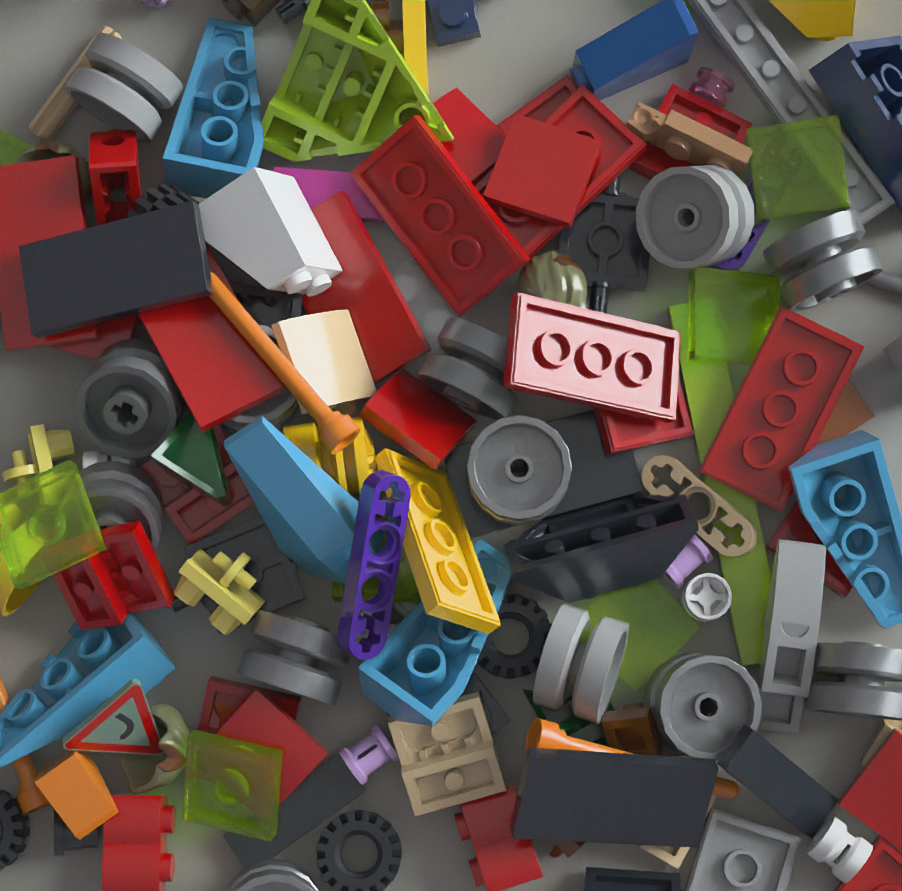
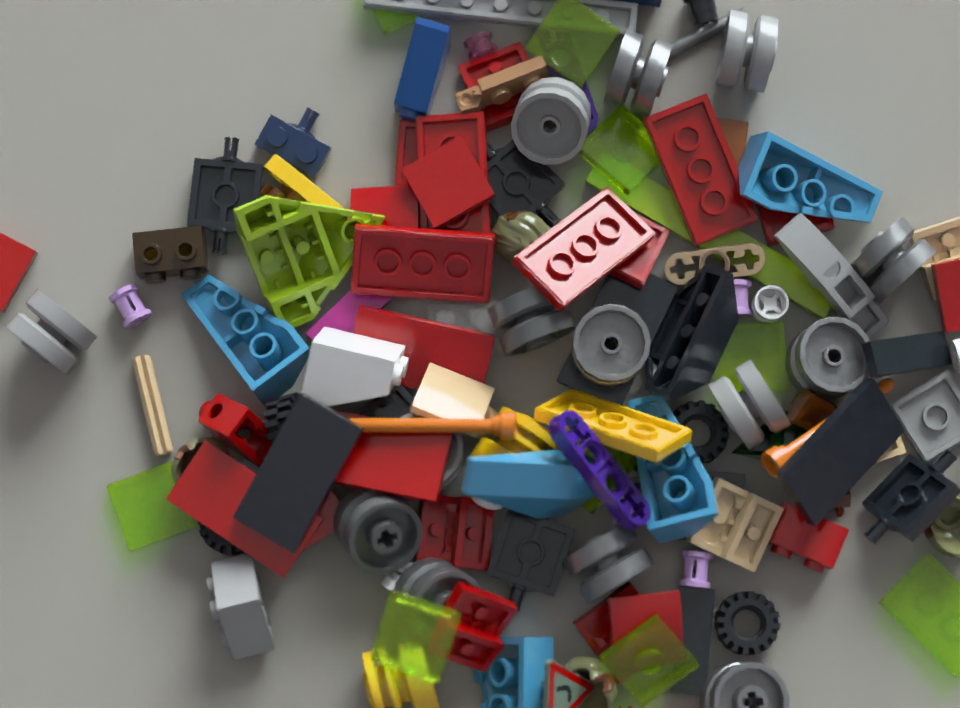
camera: 50 degrees left, 0 degrees up
(43, 448) = (358, 608): light yellow hips -> none
(123, 86) = (186, 378): light grey wheel -> none
(194, 460) = (447, 524): dark green slope -> none
(224, 583) = (529, 566): light yellow hips -> none
(417, 418) = (529, 376): red slope -> none

